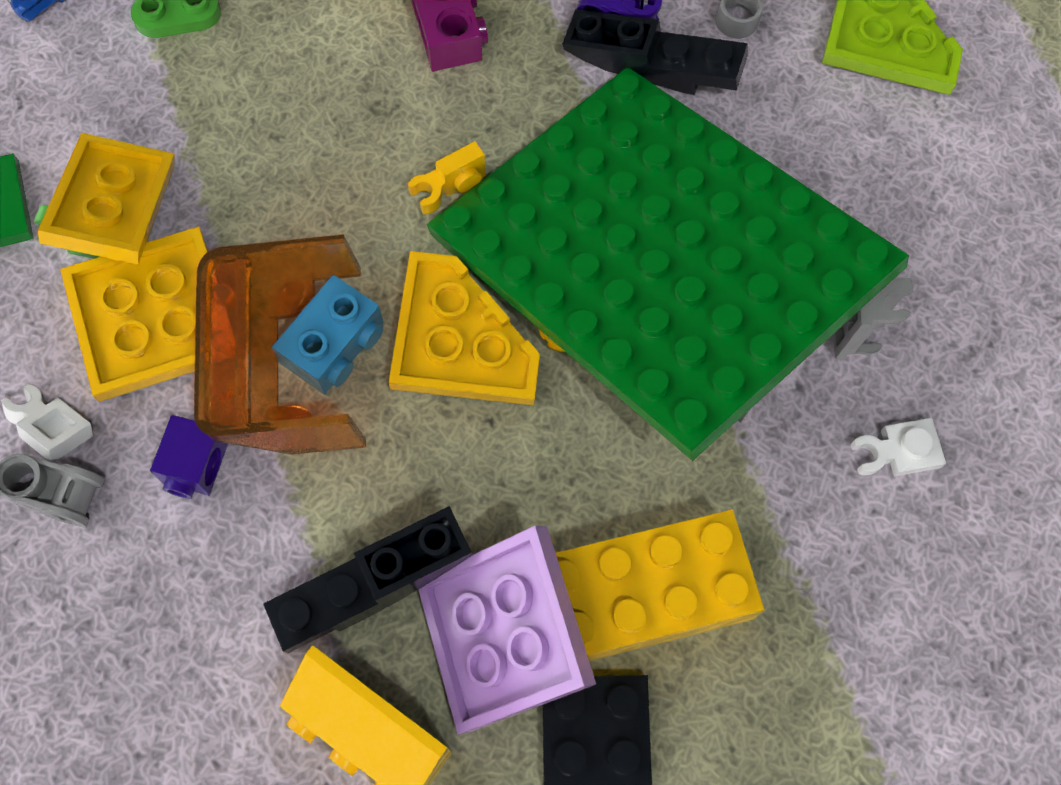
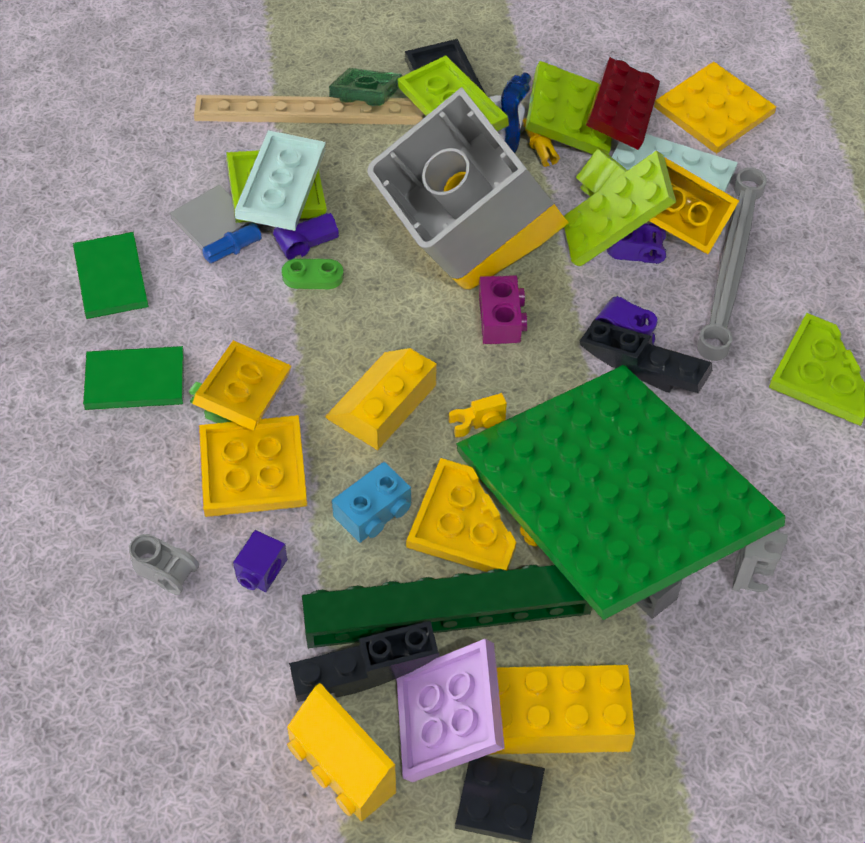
camera: 15 degrees right, 15 degrees down
(47, 428) = (167, 524): white plate -> none
(237, 317) = (316, 468): clear orange windscreen -> none
(314, 171) = (385, 396): none -> yellow slope
(447, 470) = (448, 603): none -> dark green brick
(906, 446) = (769, 657): white plate -> none

